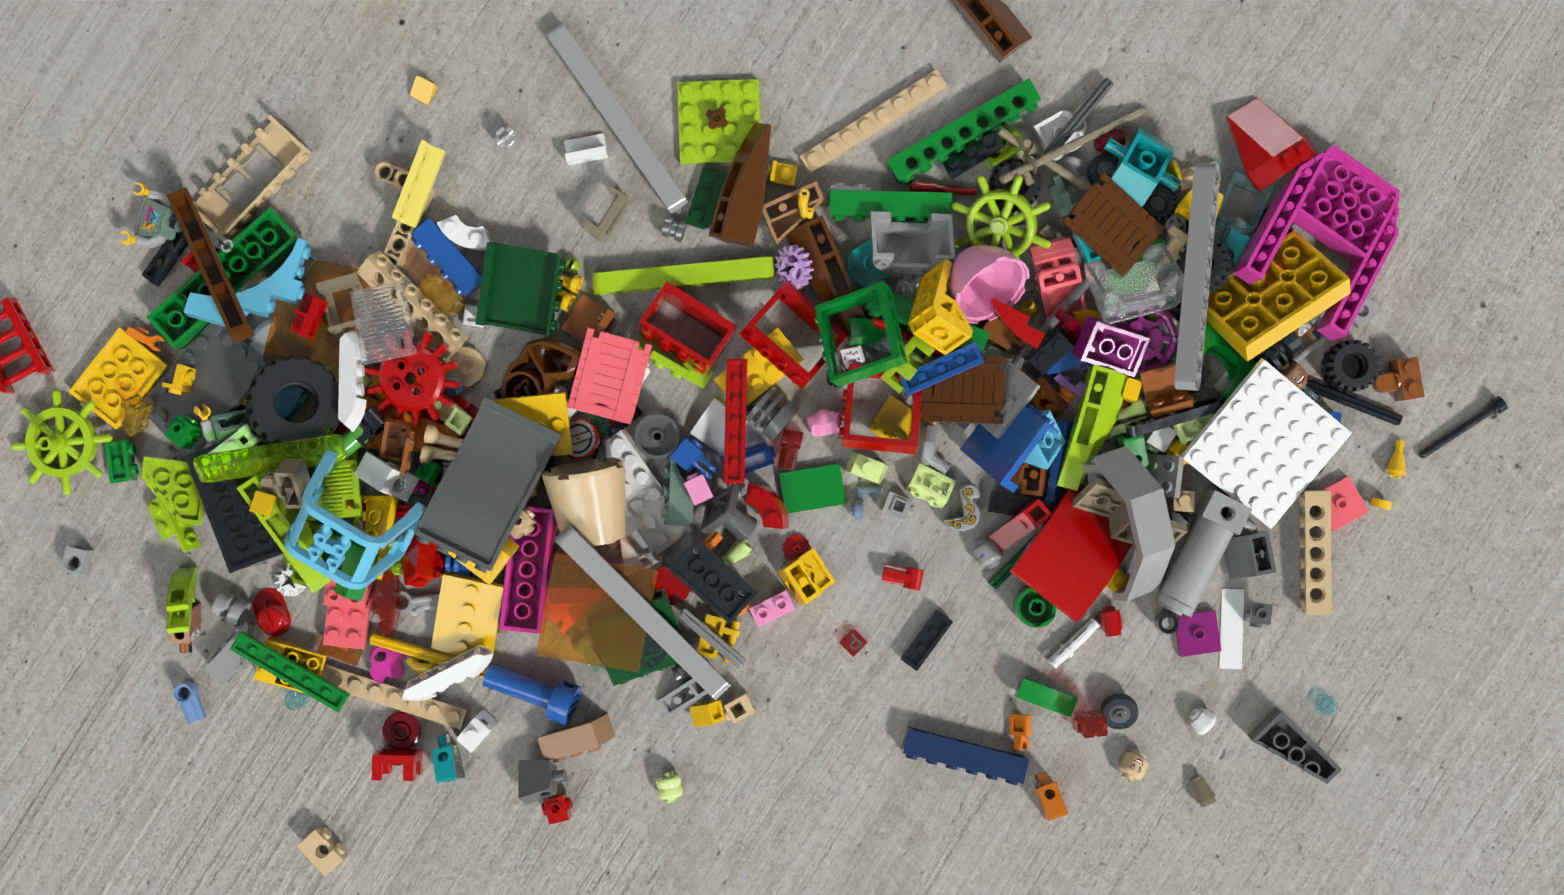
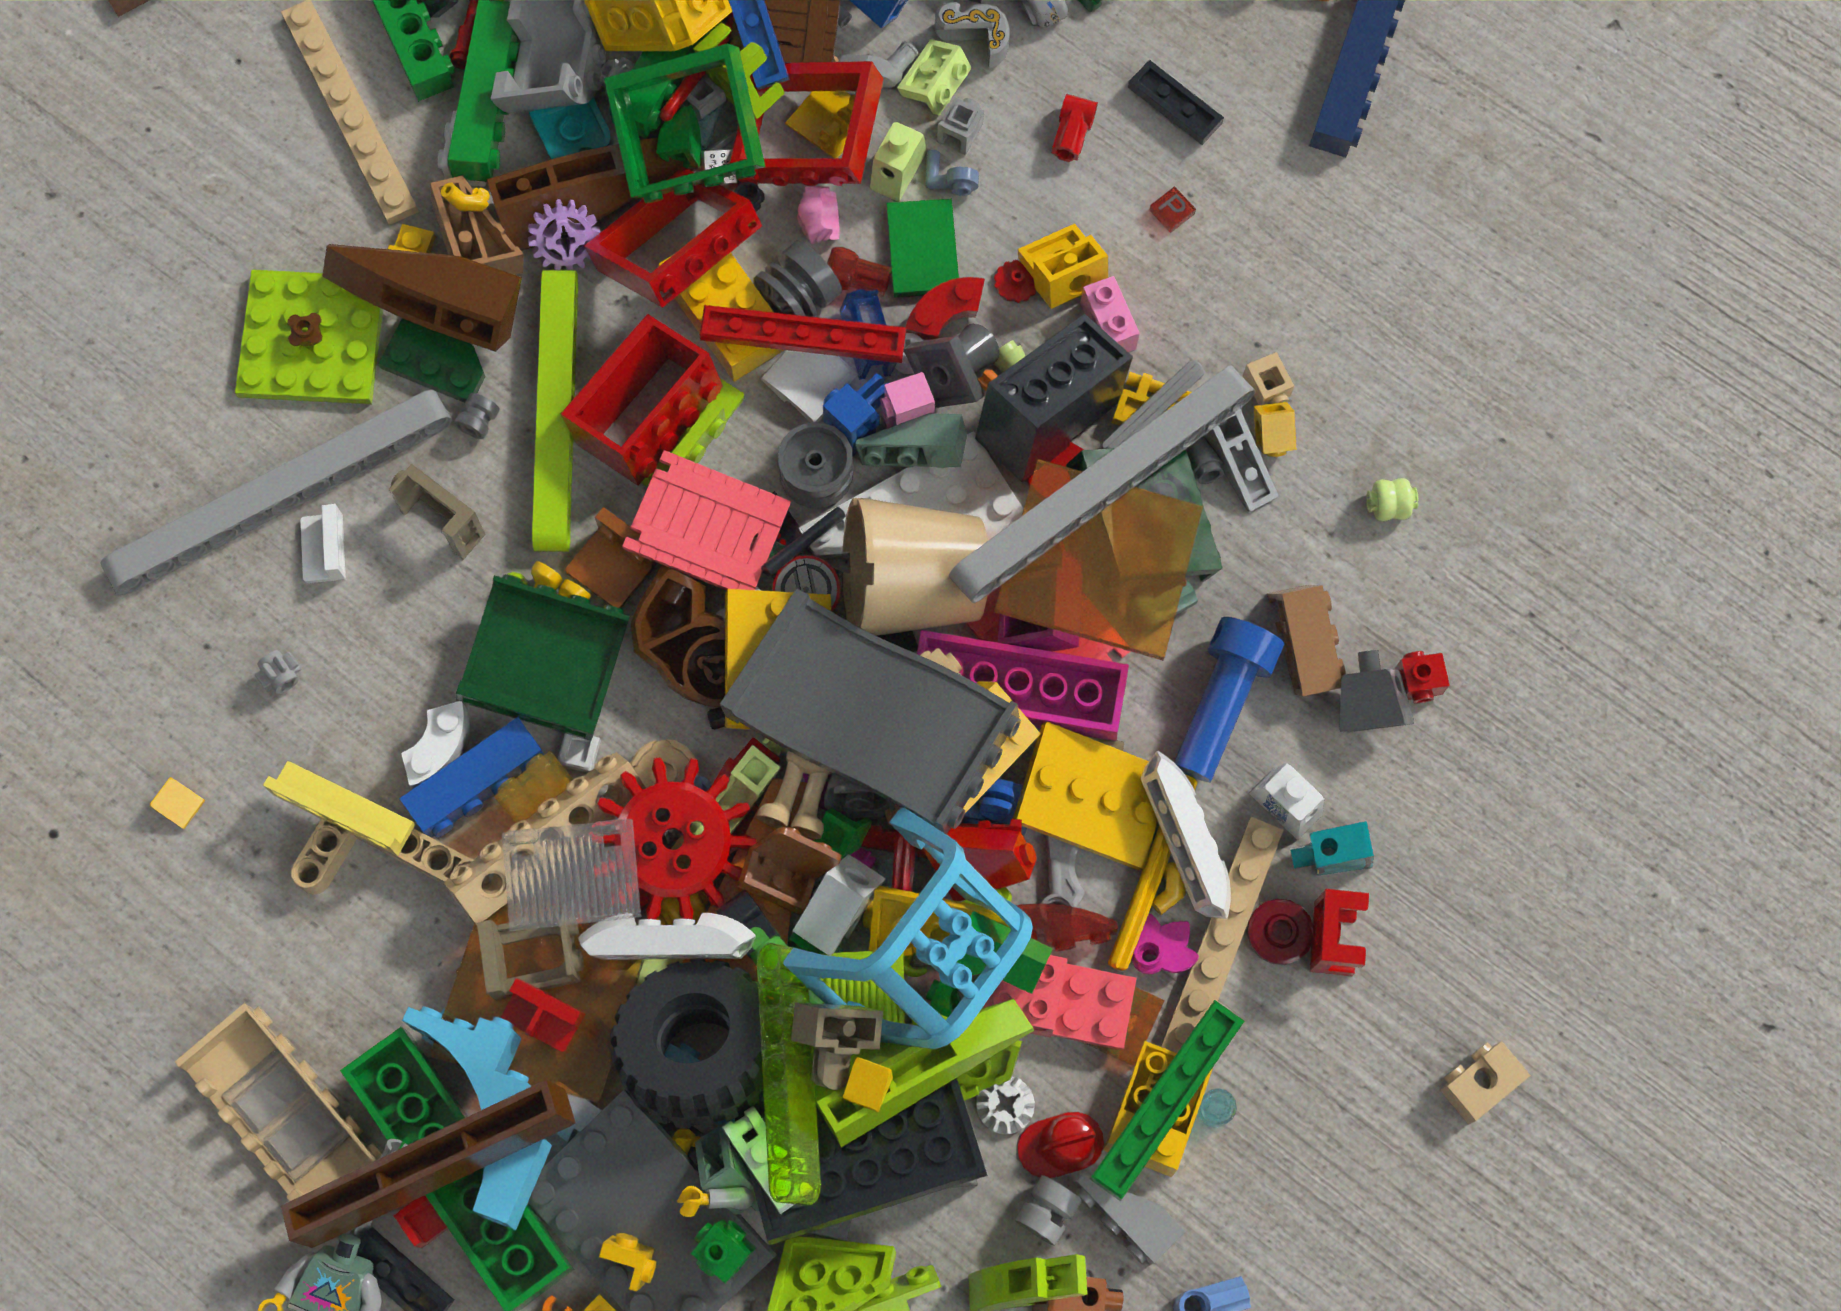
camera: 90 degrees left, 15 degrees down
(606, 434) = (803, 541): none -> black bar
(648, 556) = (995, 503): light grey bar -> none

